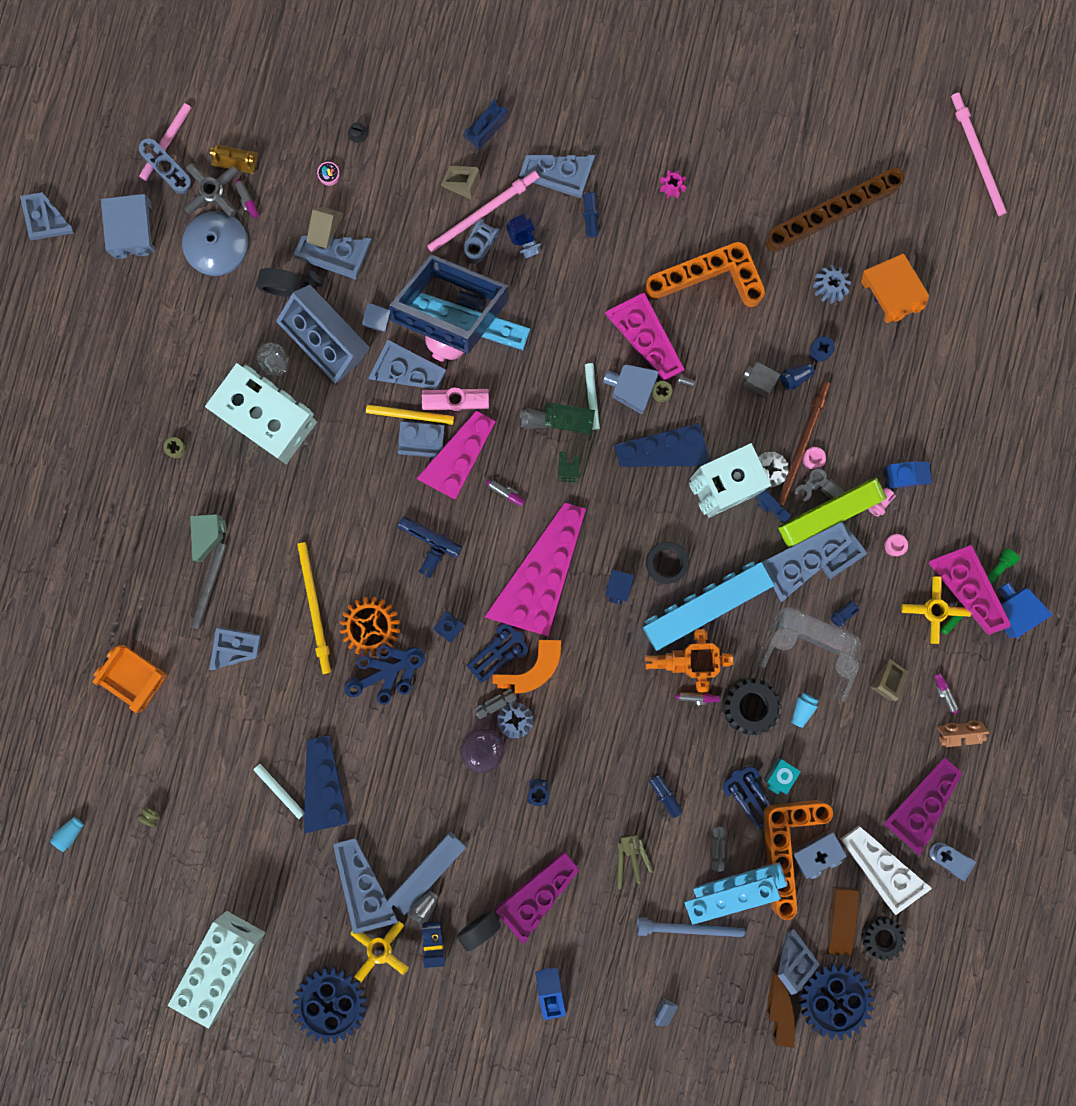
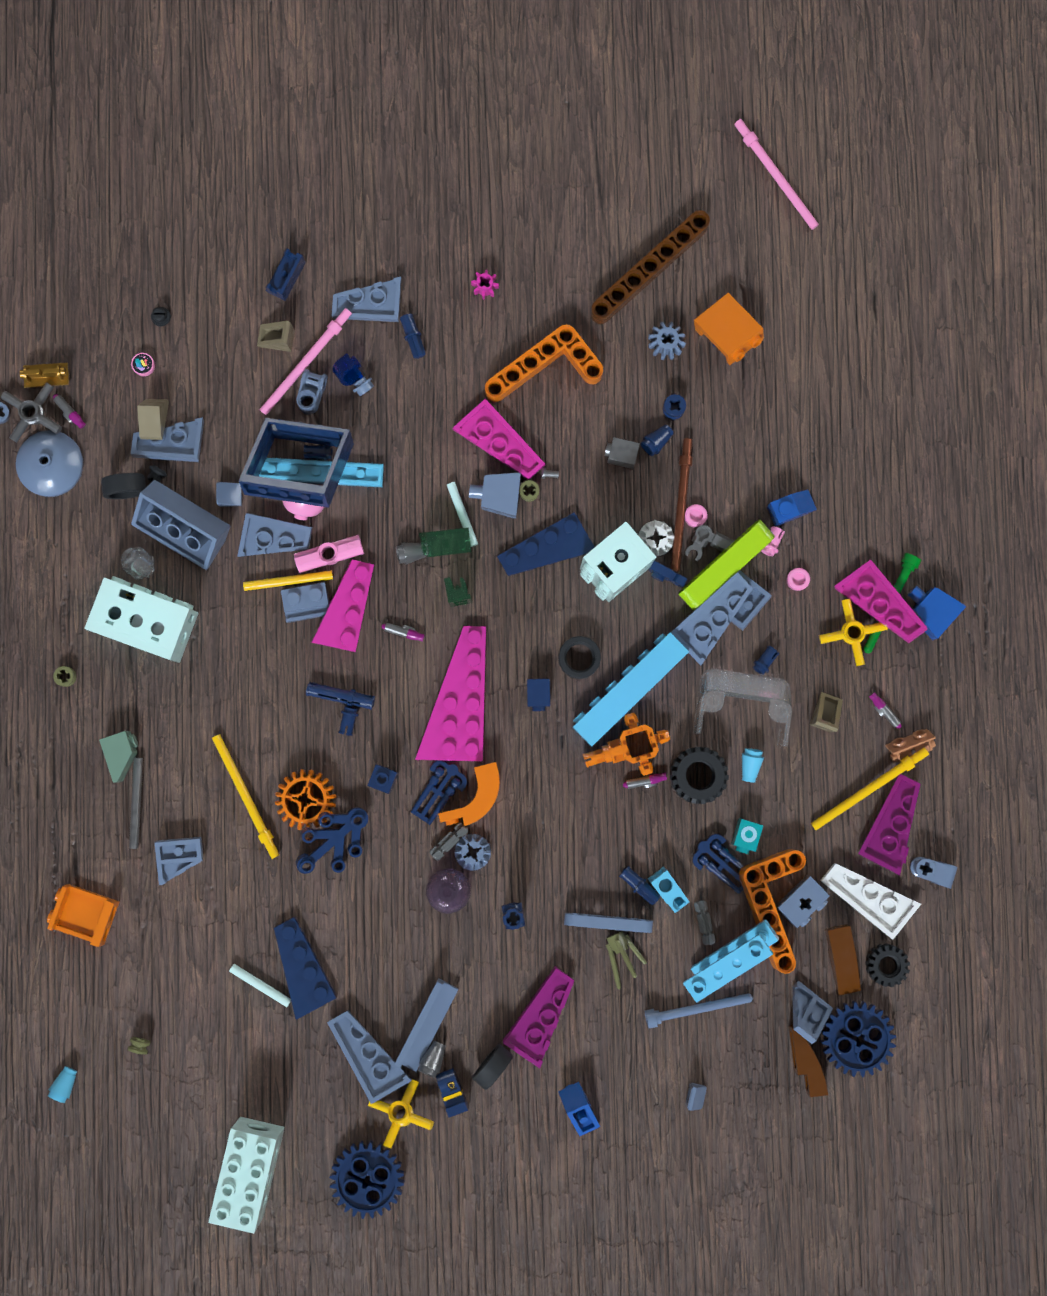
camera: 15 degrees left, 0 degrees up
(626, 823) = (608, 922): none -> sand blue beam
(692, 807) = (668, 889): none -> medium azure leg
(953, 750) = (906, 764): none -> yellow bar

